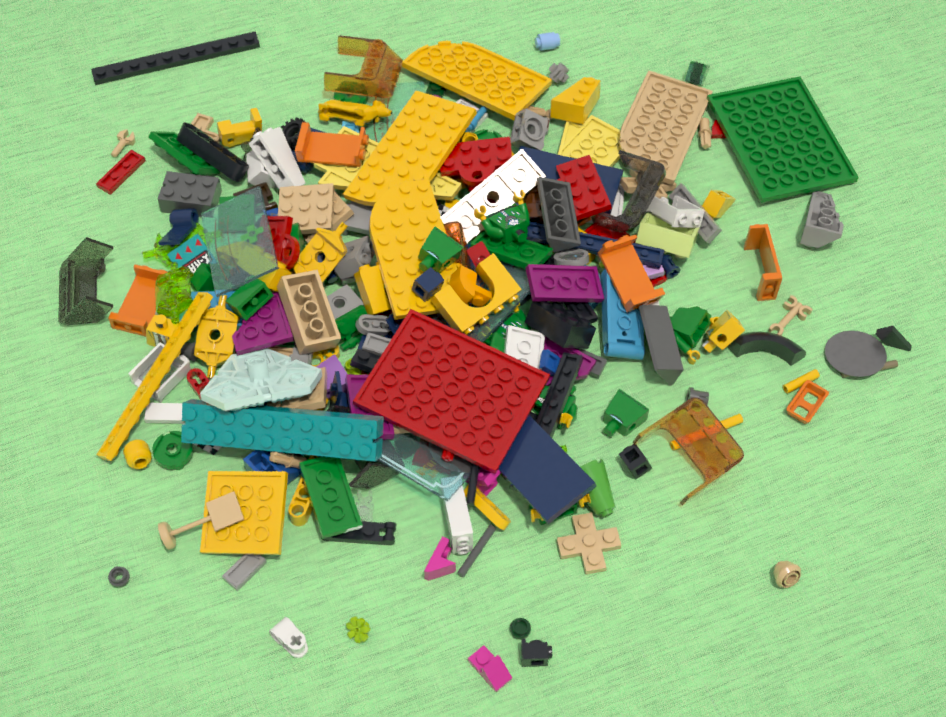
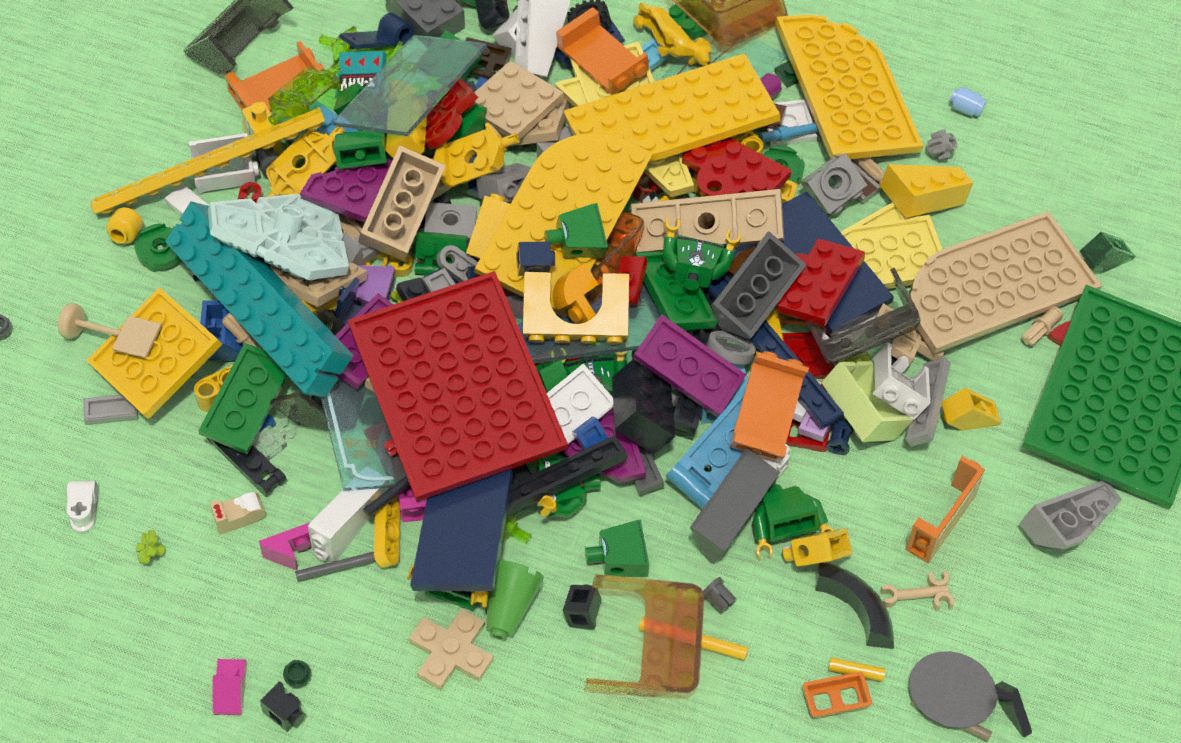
camera: 40 degrees right, 0 degrees up
(388, 567) = (237, 512): none -> tan leg

